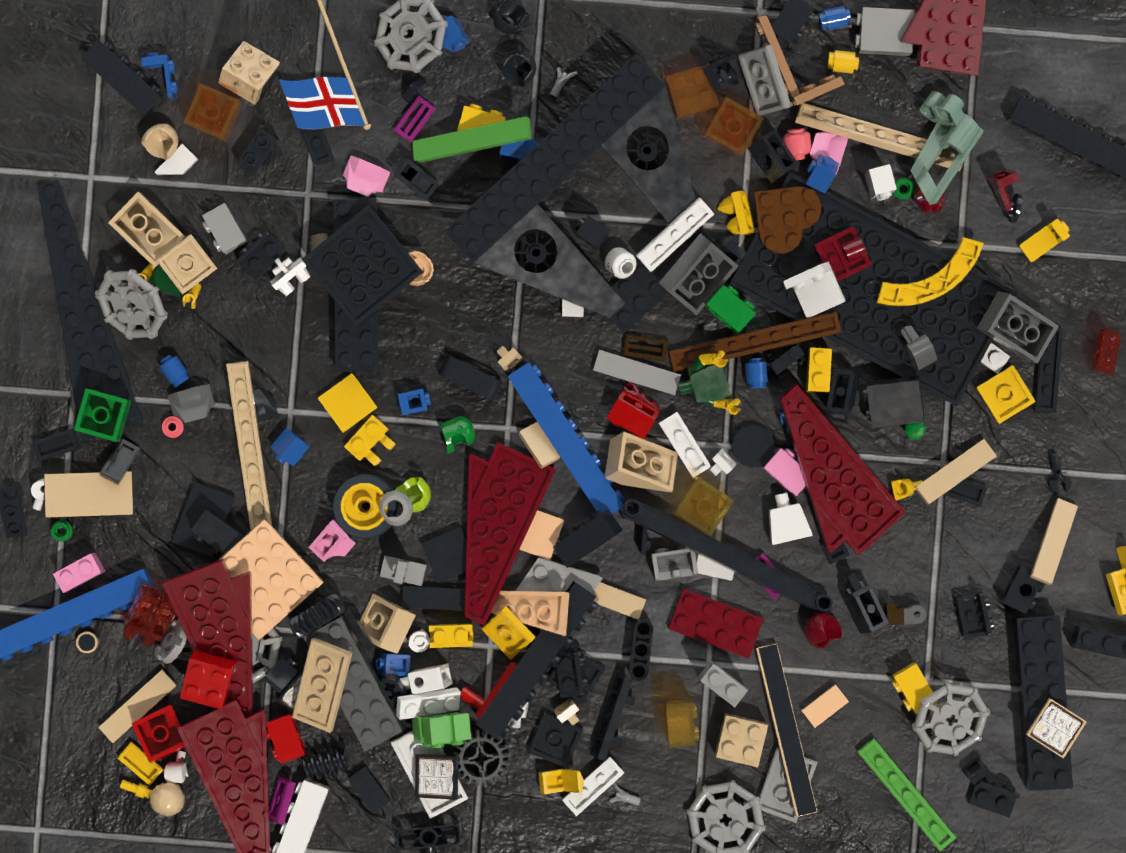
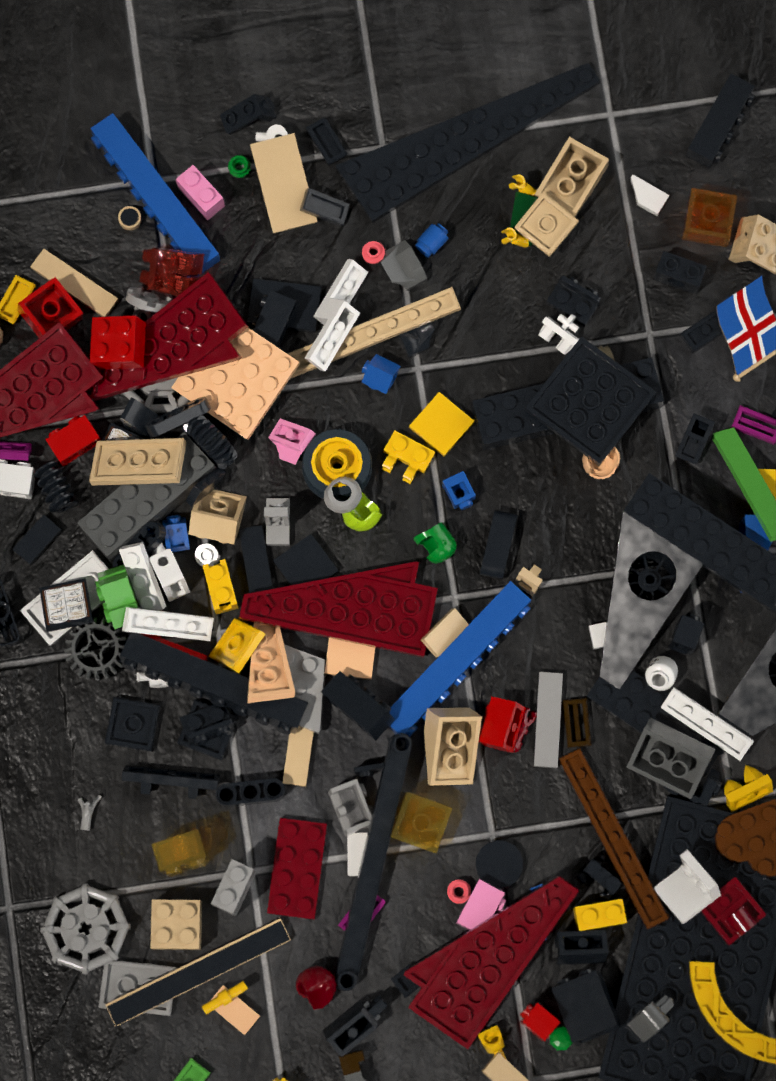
camera: 65 degrees right, 10 degrees down
(102, 415) = (369, 176): green brick -> none
(146, 304) = (495, 168): light grey plate -> none
(155, 60) = (748, 153): blue bracket -> none
(160, 141) = (666, 172): tan hair -> none
(177, 770) = (14, 336): white piece -> none
(224, 229) = (591, 257): light grey brick -> none
(225, 474) = (336, 315): none -> white bracket
(289, 640) = (177, 417): none -> black beam
(365, 176) = (683, 387): bright pink slope -> none
(476, 690) = (167, 624): none -> white tile
(561, 780) = (89, 738): yellow bracket -> none
(567, 711) = (166, 729): tan tile -> none
(594, 786) = (91, 775): white plate -> none
(684, 444) = (483, 788): white plate -> none
(710, 382) = (557, 799): dark green torso -> none
(723, 462) = (473, 834): white tile -> none
(731, 309) = (642, 801): green brick -> none
(756, 373) = (579, 848): blue brick -> none
(768, 494) = (459, 899): none -> coral plate
(787, 521) = (426, 920): white torso -> none
(813, 711) = (224, 997): none -> yellow bar
(897, 445) = (538, 1021): none -> red brick

